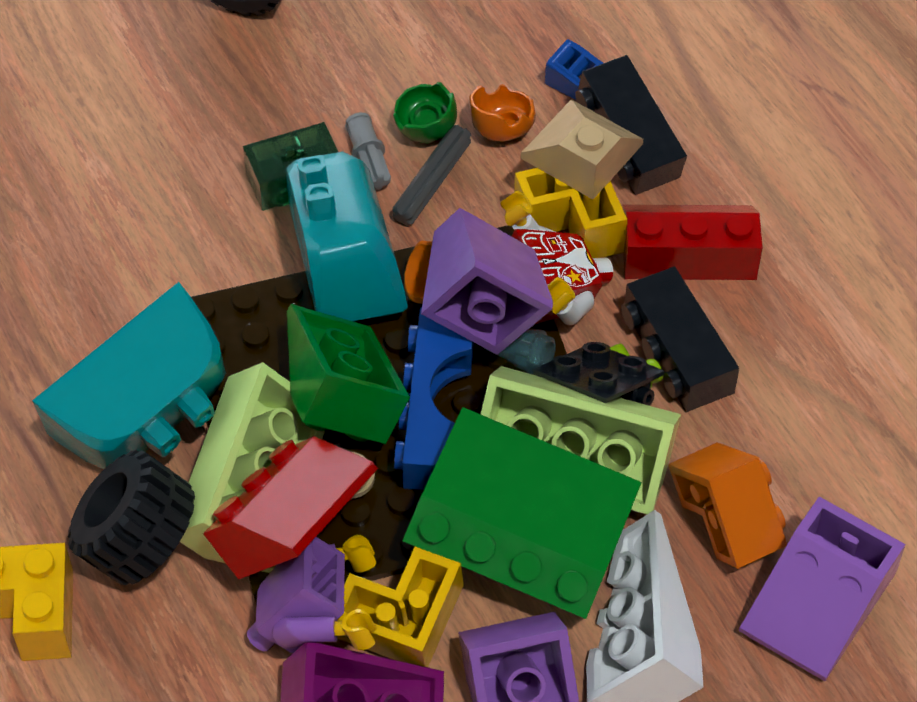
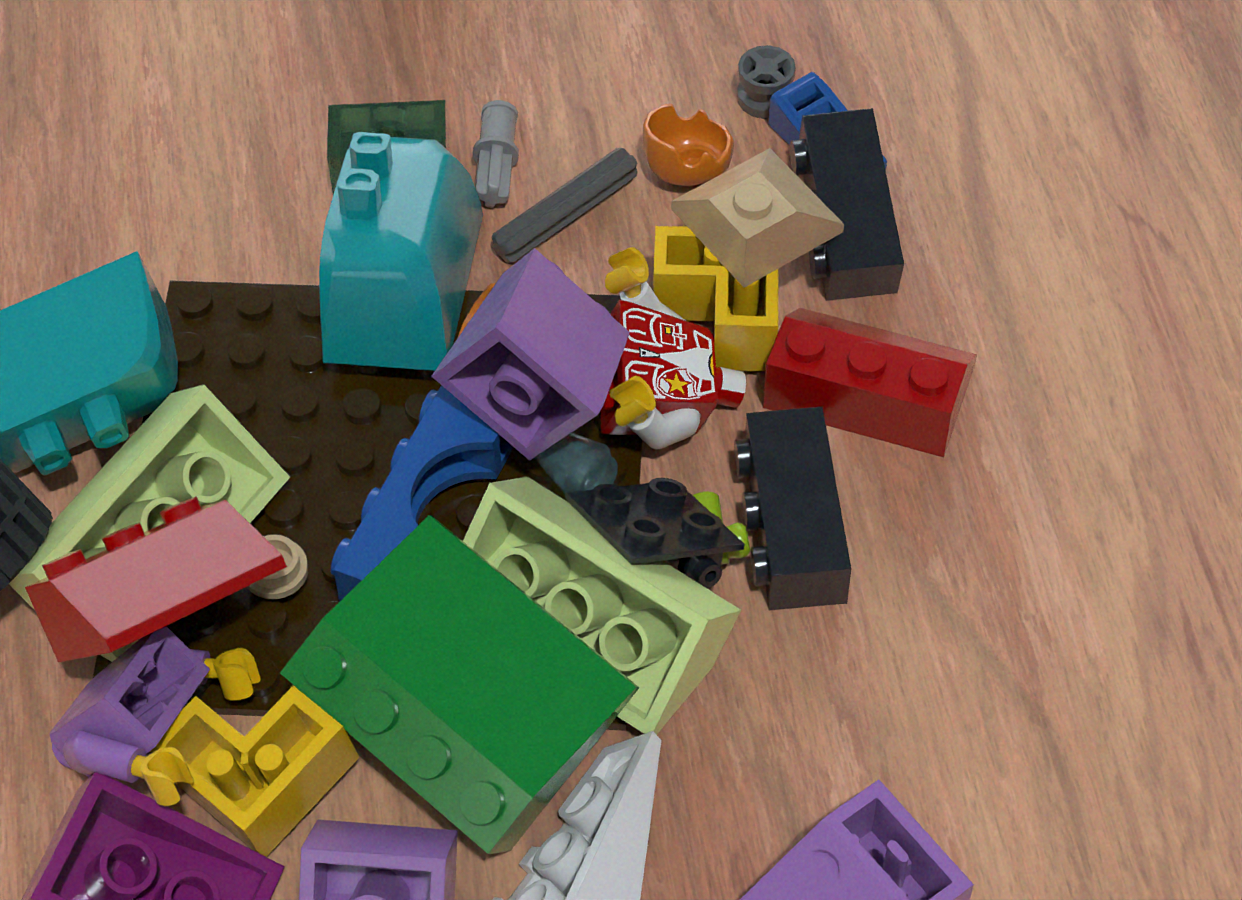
camera: 20 degrees right, 0 degrees up
(342, 376) = (310, 432): green slope -> none
(425, 112) = (587, 122): green hair -> none
(532, 51) = (761, 74): none -> dark grey wheel
(734, 500) = (762, 753): orange brick -> none

